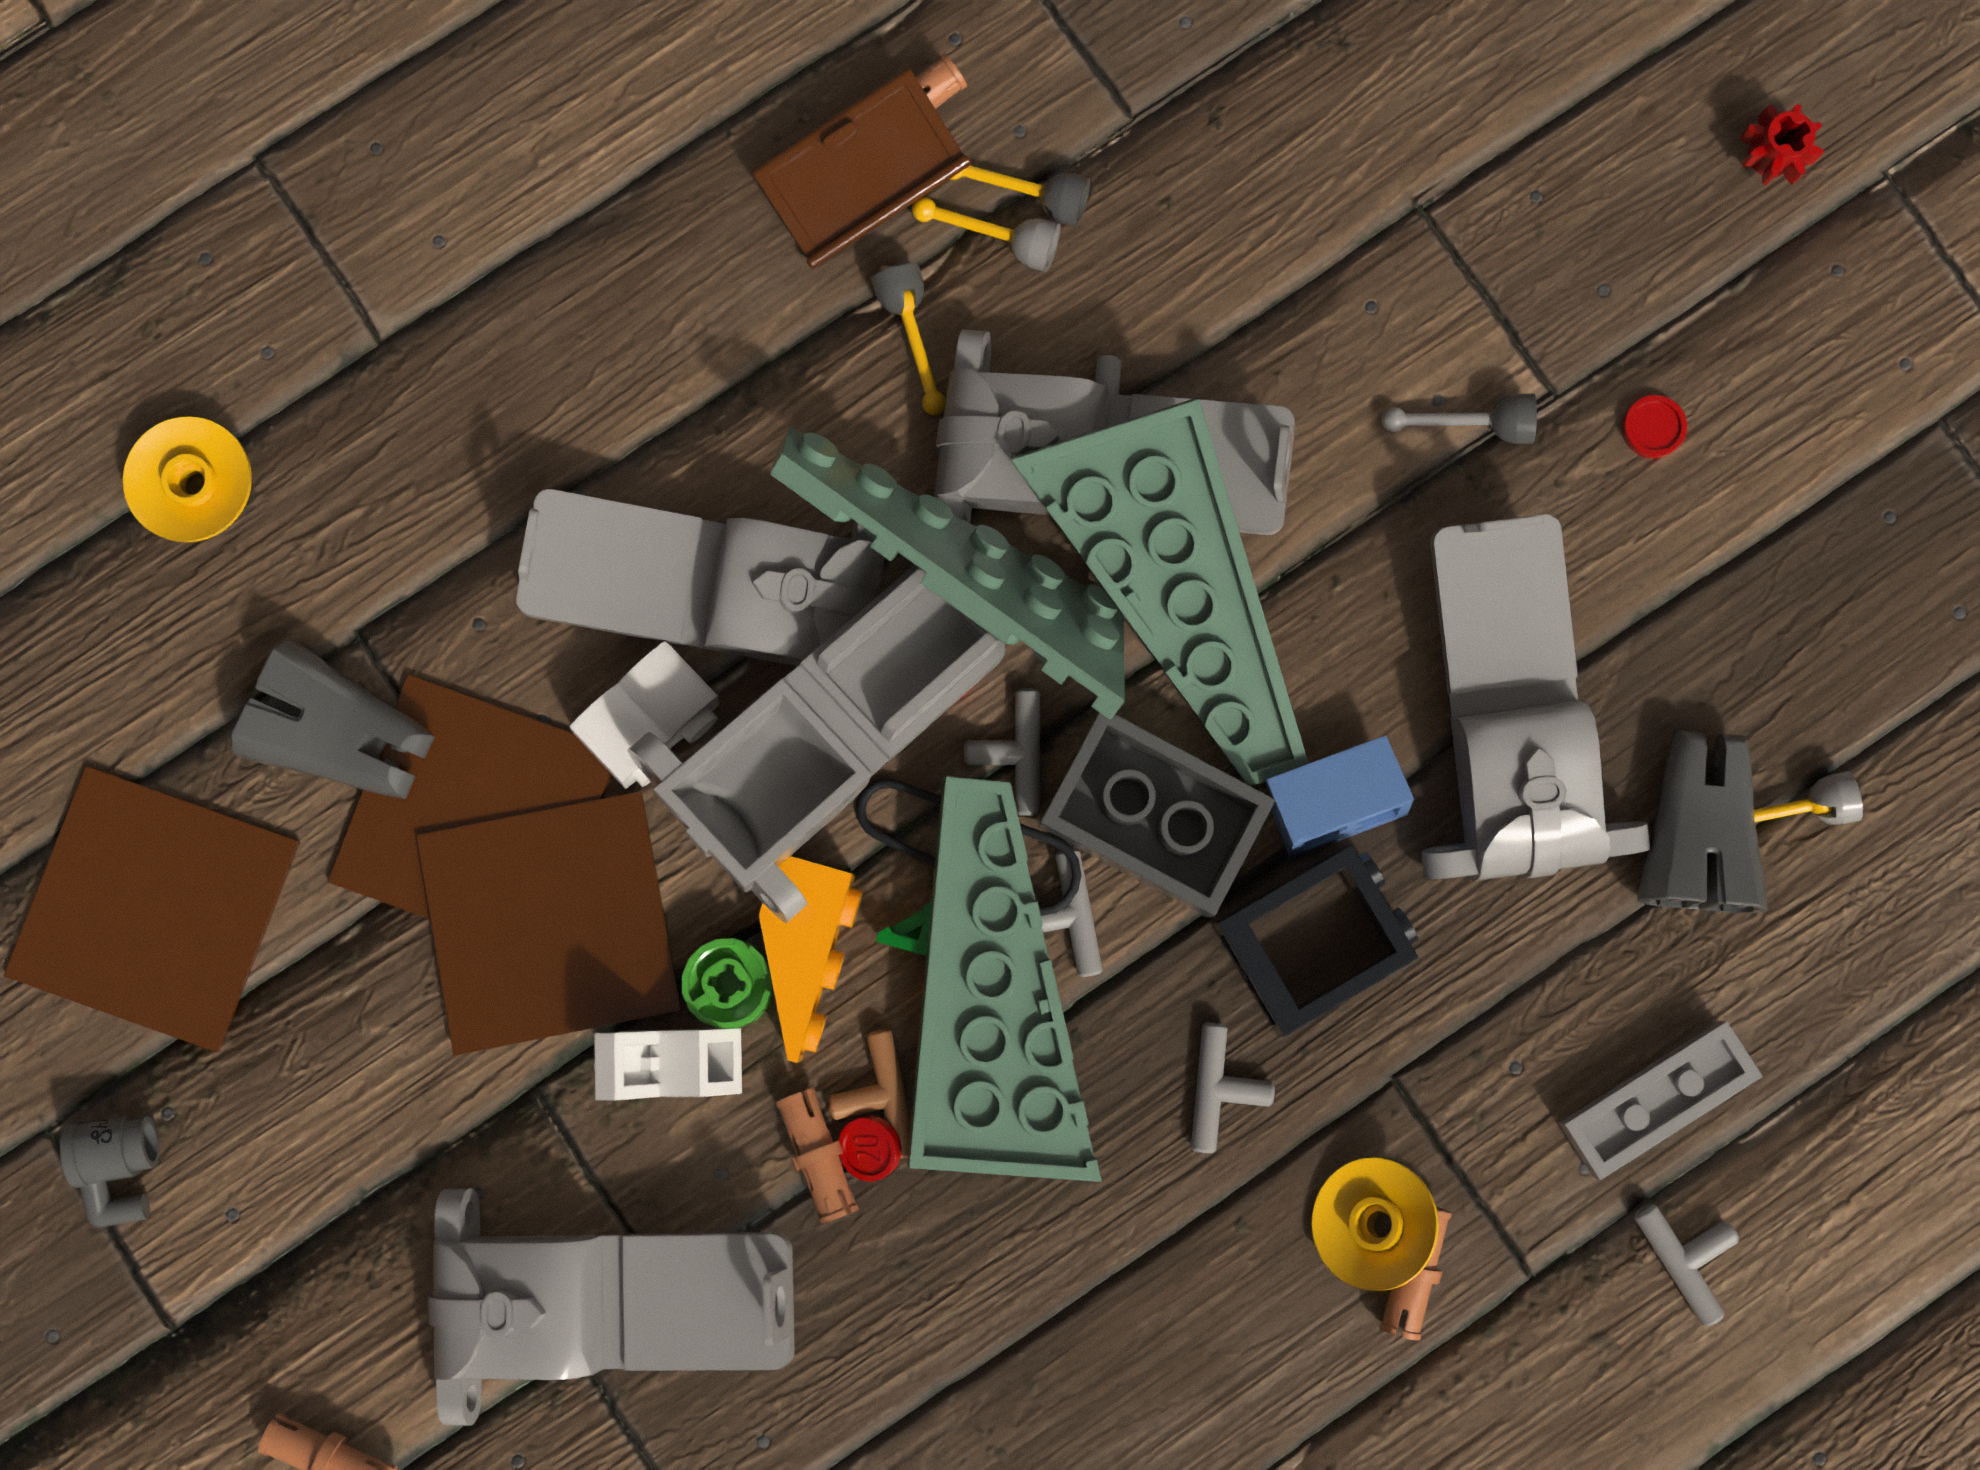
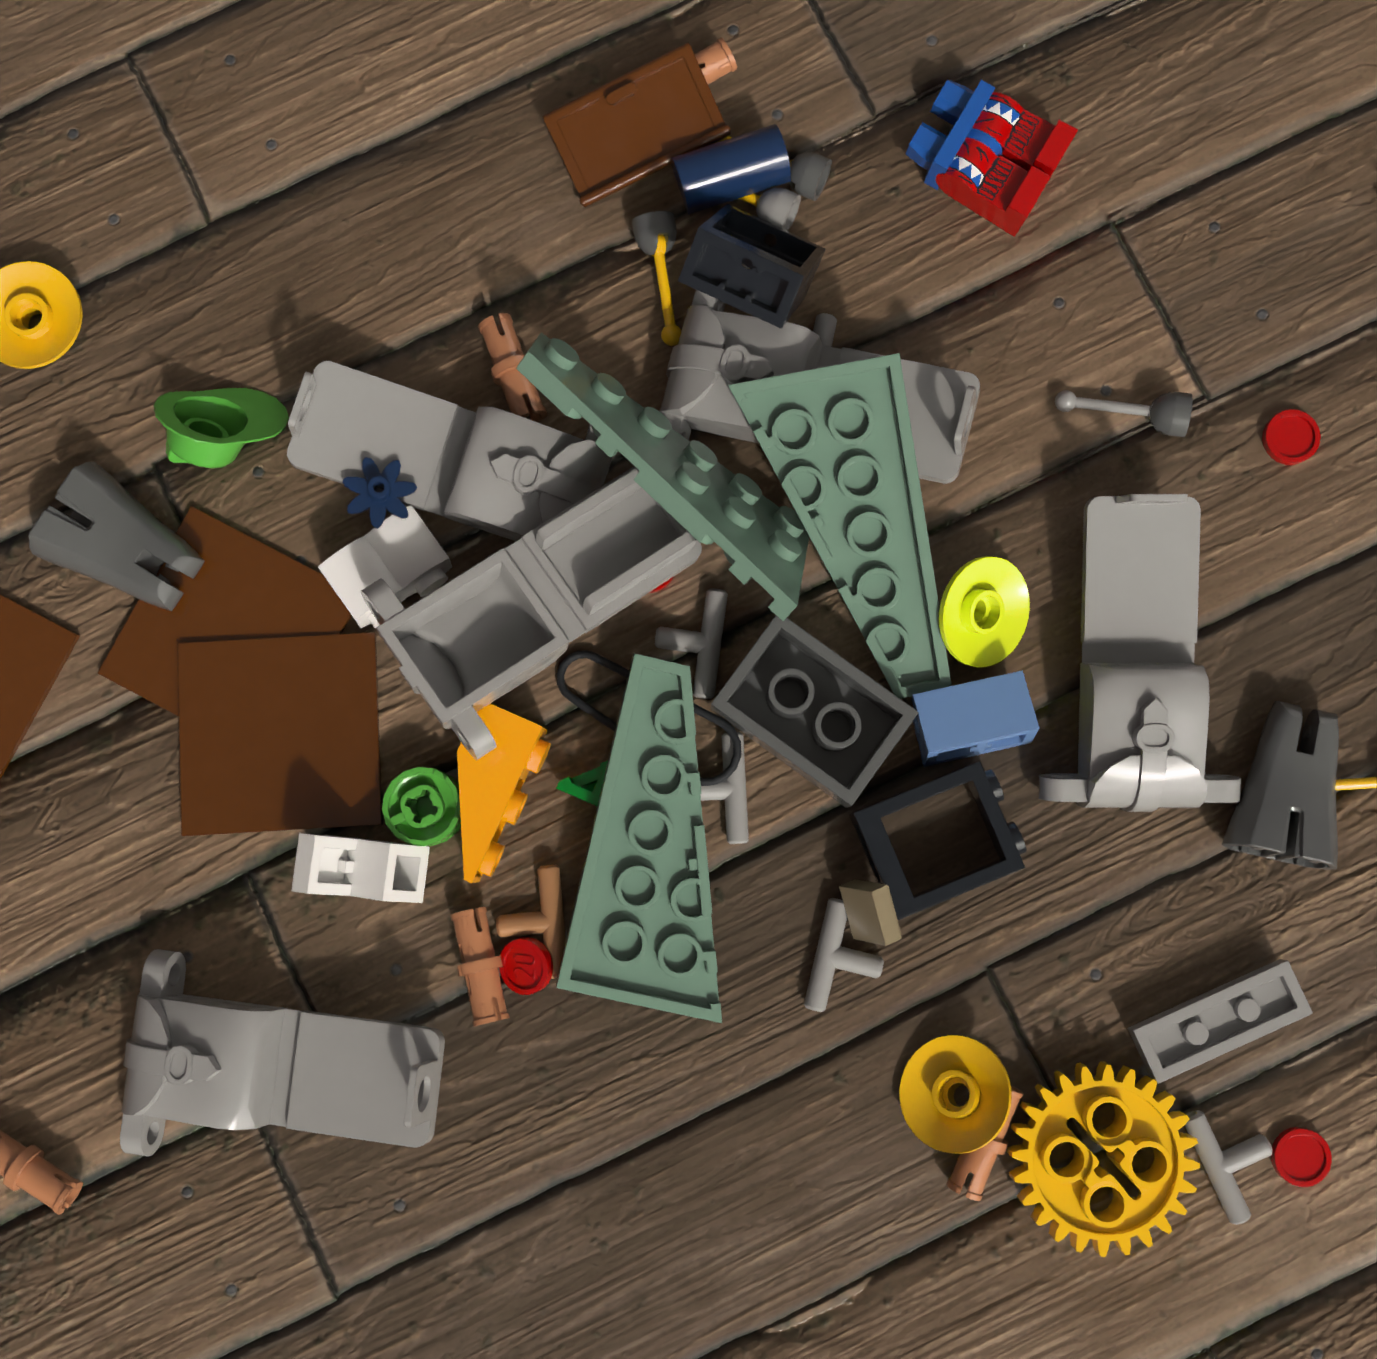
camera: 15 degrees right, 0 degrees up
(425, 576) = (216, 423): none -> bright green piece
(628, 643) = (381, 501): none -> dark blue plant
(754, 465) = (506, 356): none -> nougat pin
(977, 204) = (732, 168): none -> dark blue brick
(1014, 324) = (742, 270): none -> black window
(1252, 1032) = (870, 912): none -> dark tan tile
(1275, 149) = (993, 155): none -> hips
(1334, 674) = (984, 611): none -> neon yellow dish
(1515, 1316) = (1066, 1191): none -> yellow gear
(1772, 1240) = (1301, 1157): none -> red piece

